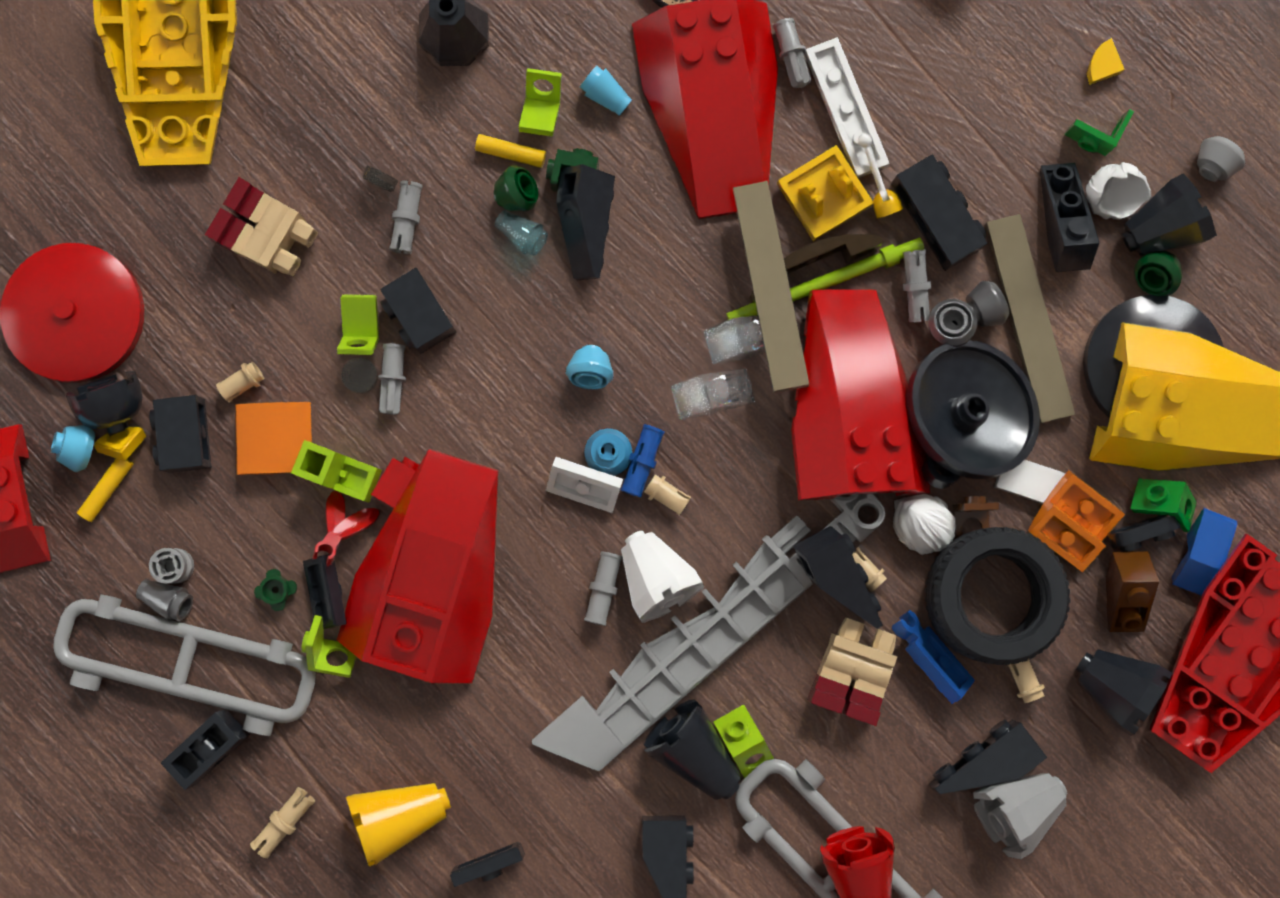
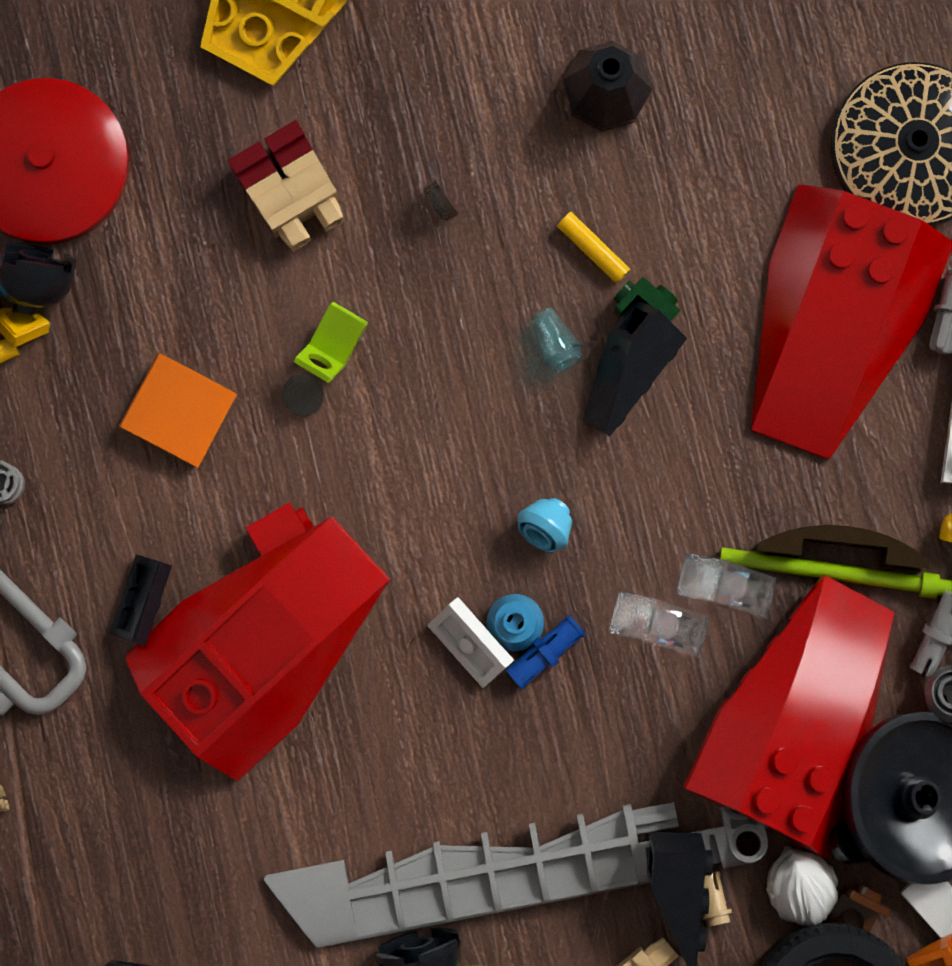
camera: 35 degrees right, 0 degrees up
(180, 434) = (85, 351): black brick -> none
(240, 381) = (177, 331): tan pin -> none
(265, 590) = (80, 564): dark green plate -> none
(319, 648) = (101, 655): lime bracket -> none
(336, 471) = (223, 483): lime brick -> none
(340, 528) = (195, 544): red piece -> none
(391, 378) = (334, 417): light grey axle -> none
(395, 817) = (82, 873): yellow cone -> none
(405, 217) = (444, 256): light grey pin -> none
(417, 311) = (401, 362): black brick -> none
(516, 189) = (575, 293): dark green cone -> none
(540, 107) = (651, 219): lime bracket -> none
(603, 588) = (428, 761): light grey pin -> none
(605, 90) = (729, 241): medium azure cone -> none
(657, 576) = (491, 781): white cone -> none
(667, 494) = (551, 702): tan pin -> none
(770, 287) = (782, 549): dark tan tile -> none
(825, 193) = (898, 480): yellow plate -> none

